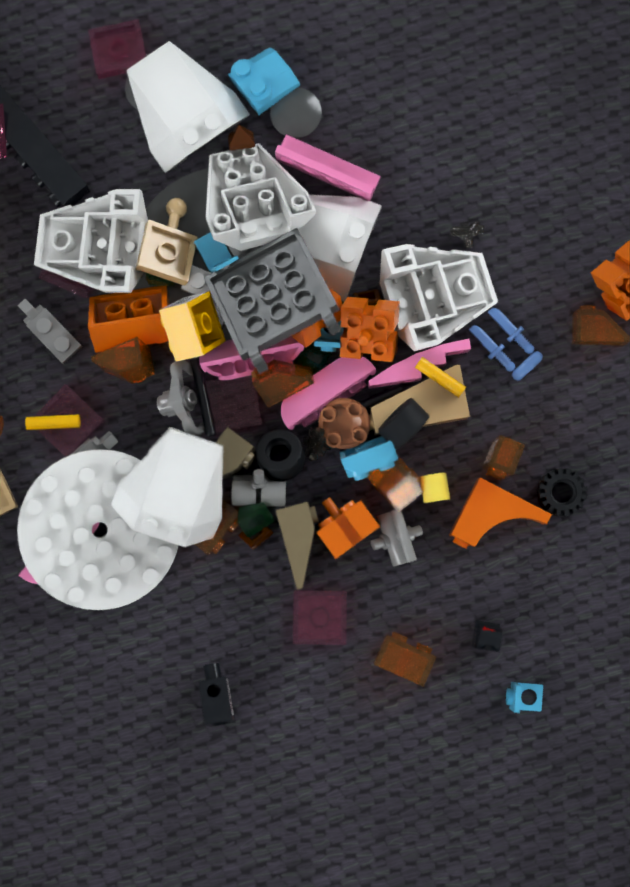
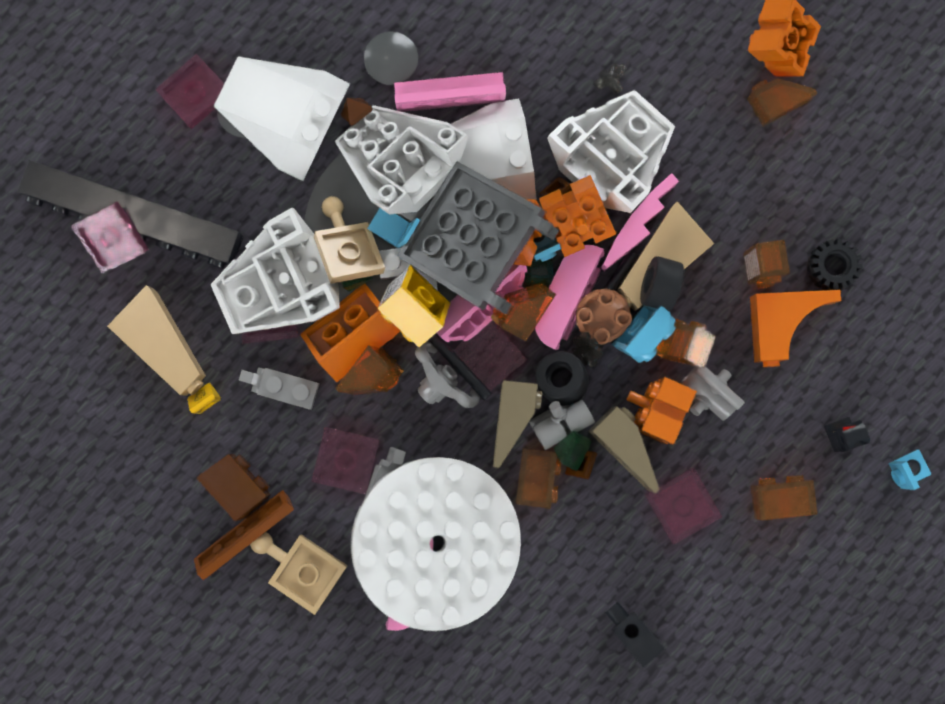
camera: 30 degrees left, 0 degrees up
(53, 422) = (334, 469): yellow piece -> none
(174, 490) = (489, 467): white wedge -> none
(263, 79) = (344, 44): medium azure slope -> none
(435, 487) = (722, 326): light yellow panel -> none
(440, 377) = (667, 222): yellow piece -> none
(496, 351) = (707, 146): medium blue piece -> none

